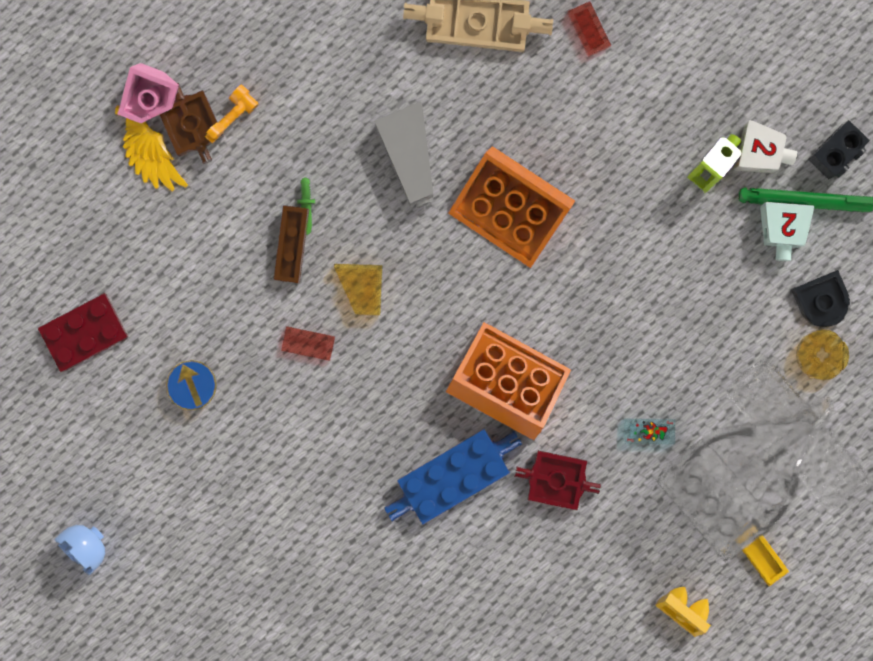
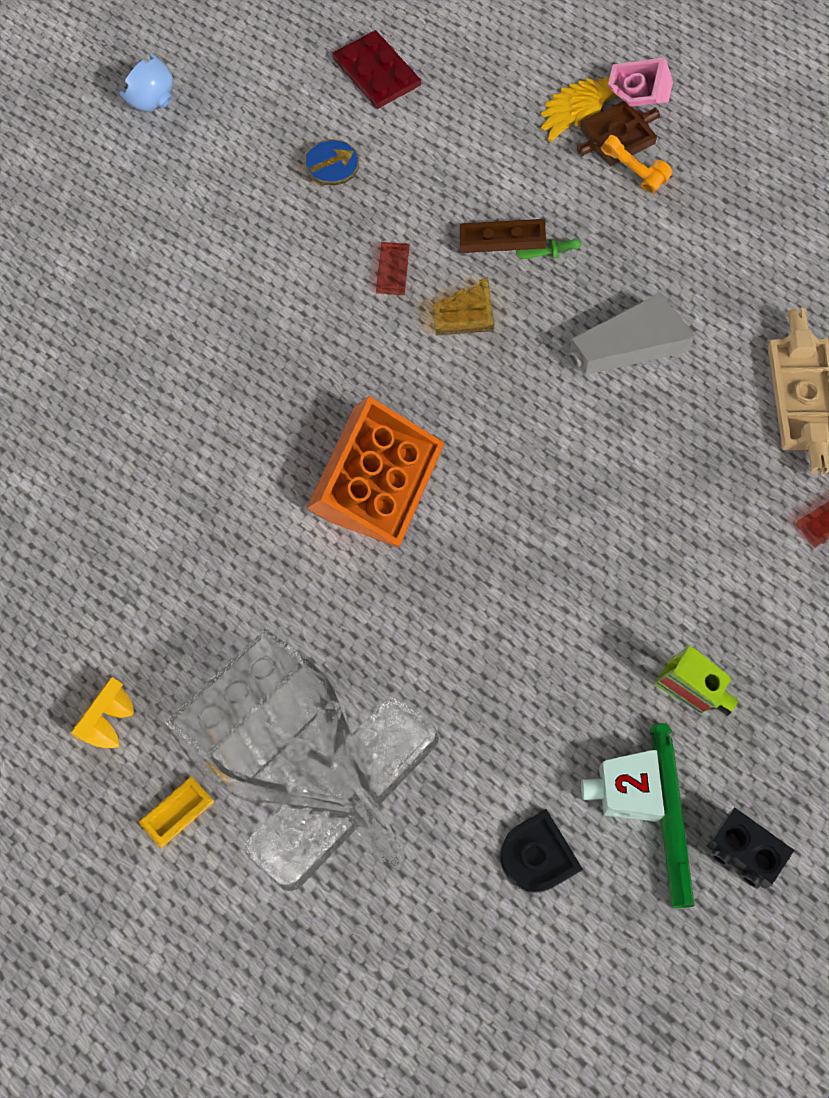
camera: 85 degrees right, 20 degrees down
(453, 476) = (255, 427): blue plate -> none
(512, 206) = (591, 454): orange slope -> none
(557, 480) = (259, 542): dark red plate -> none
(649, 431) = (332, 646): clear light blue tile -> none
(763, 149) = (725, 744): white torso -> none
(833, 345) = (475, 845): clear yellow plate -> none

